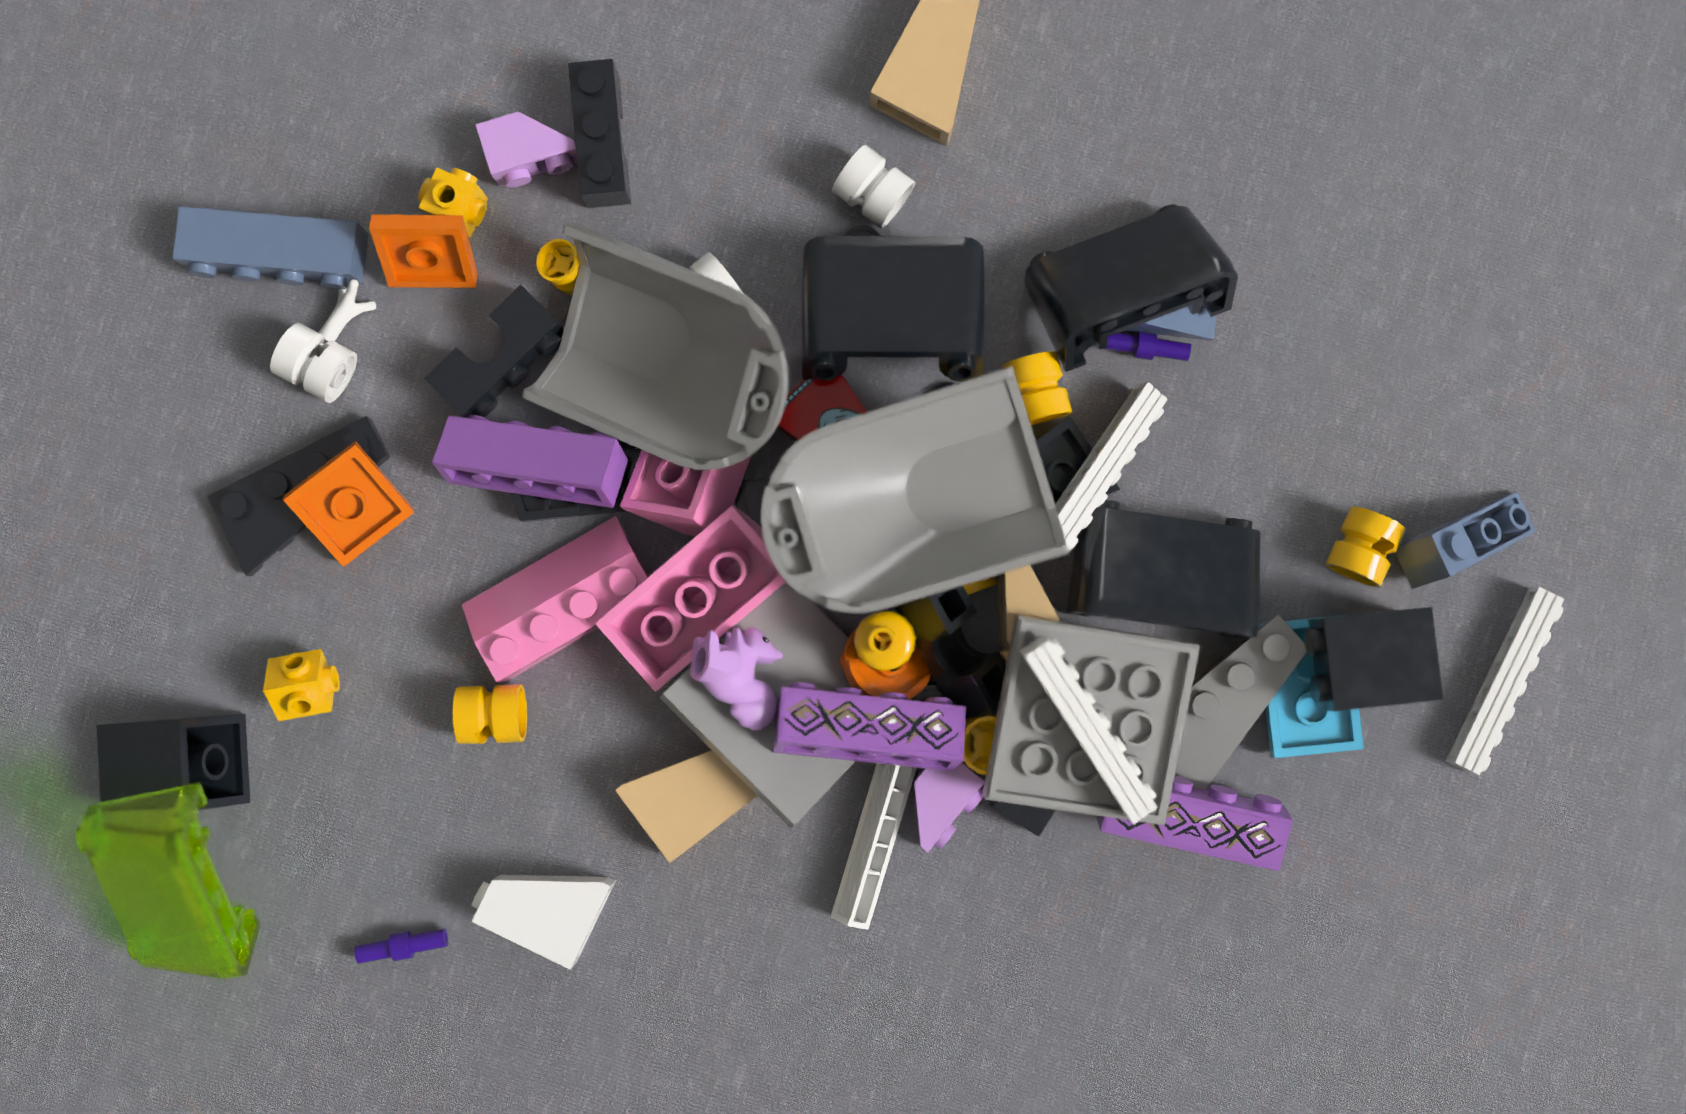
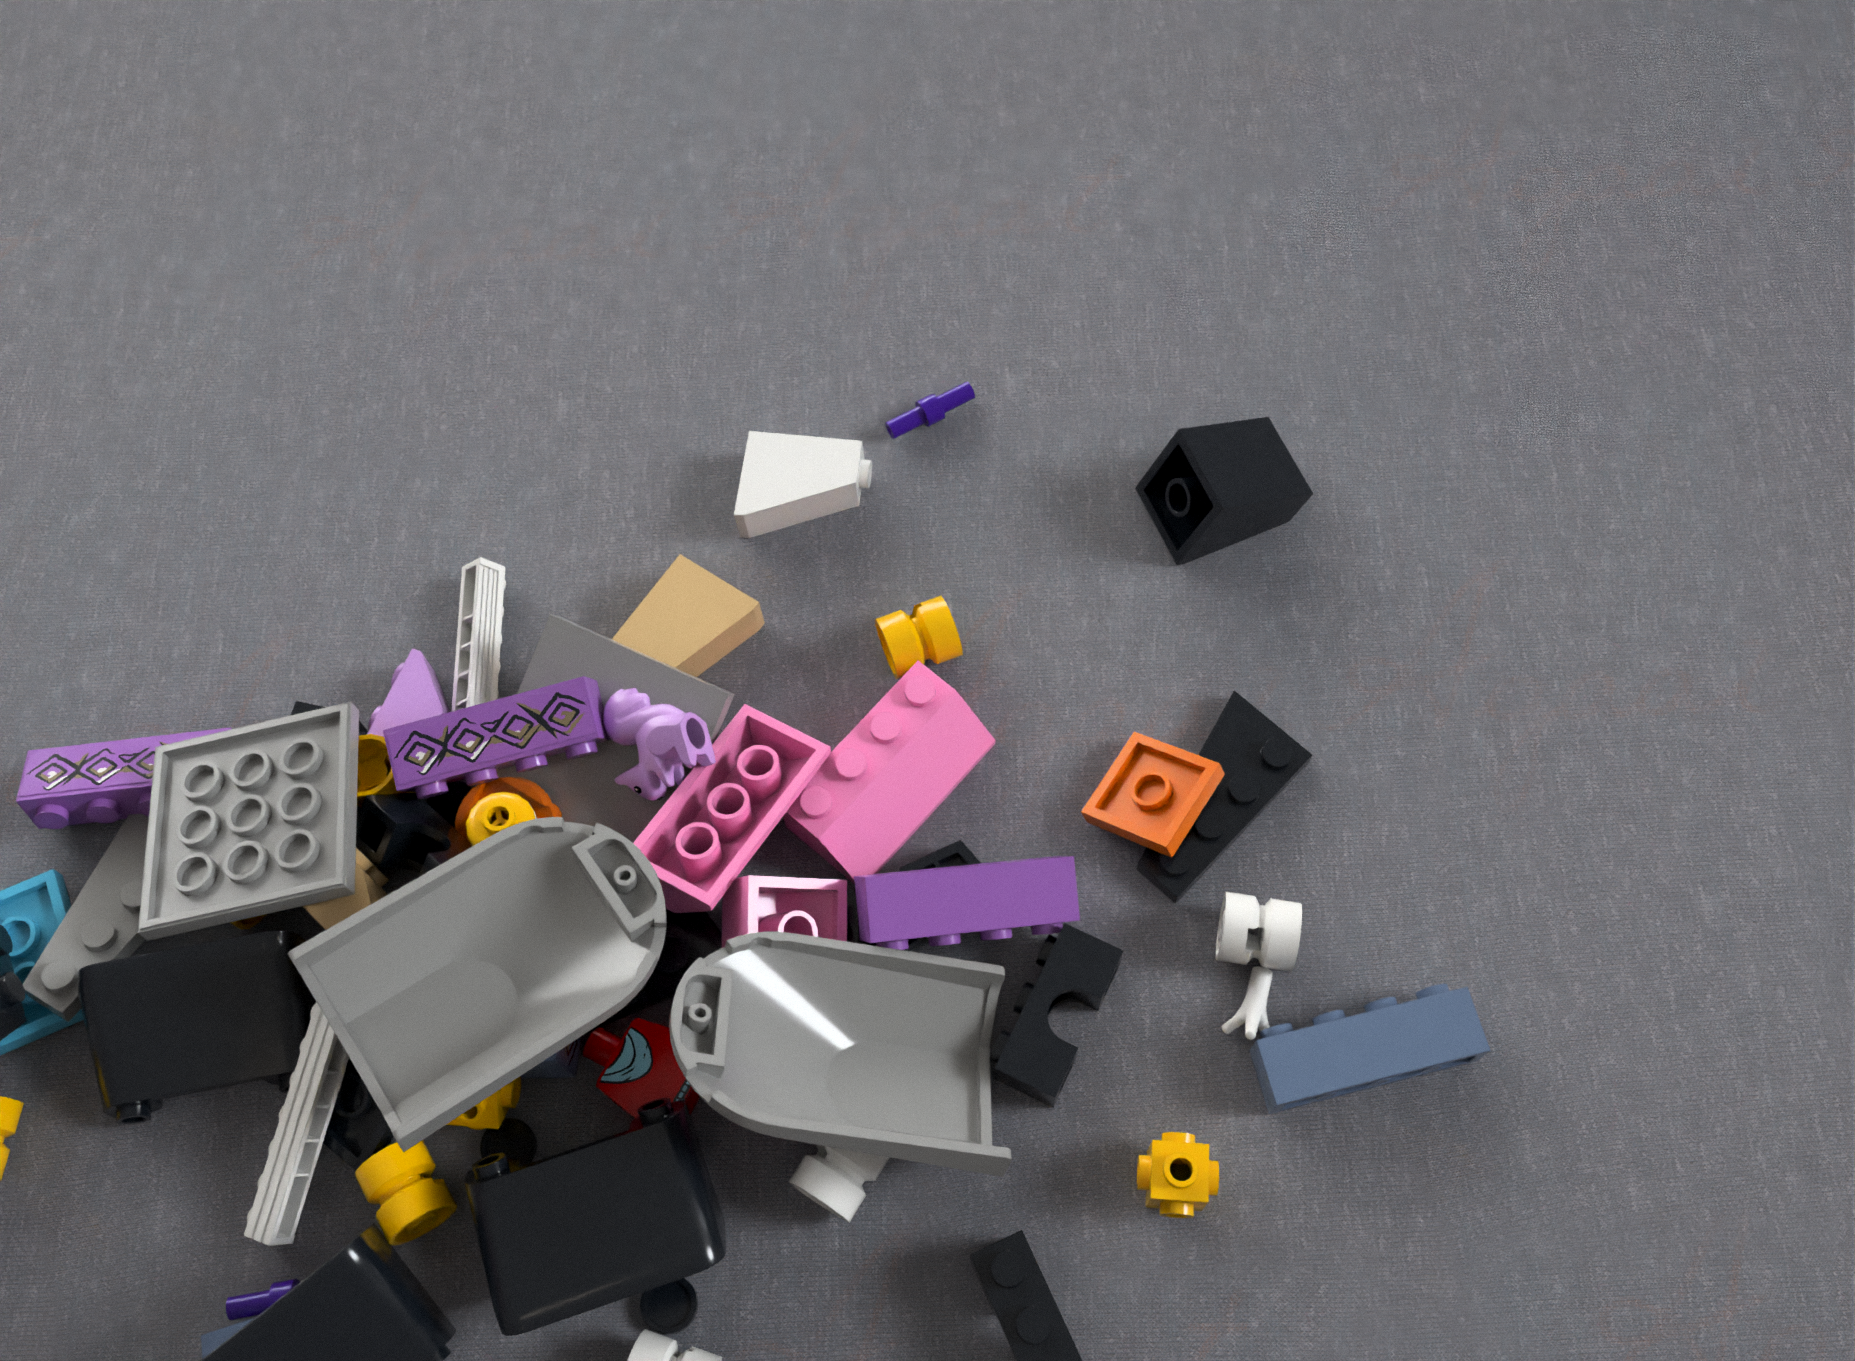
camera: 165 degrees right, 20 degrees down
(165, 885) = (1172, 365): clear neon green windscreen -> none
(300, 684) = (1125, 600): yellow brick -> none
(424, 251) = (1184, 1098): orange plate -> none
(522, 148) = (1123, 1278): lavender slope -> none
(559, 264) = (1025, 1138): yellow wheel -> none
(1089, 728) = (246, 801): white piece -> none

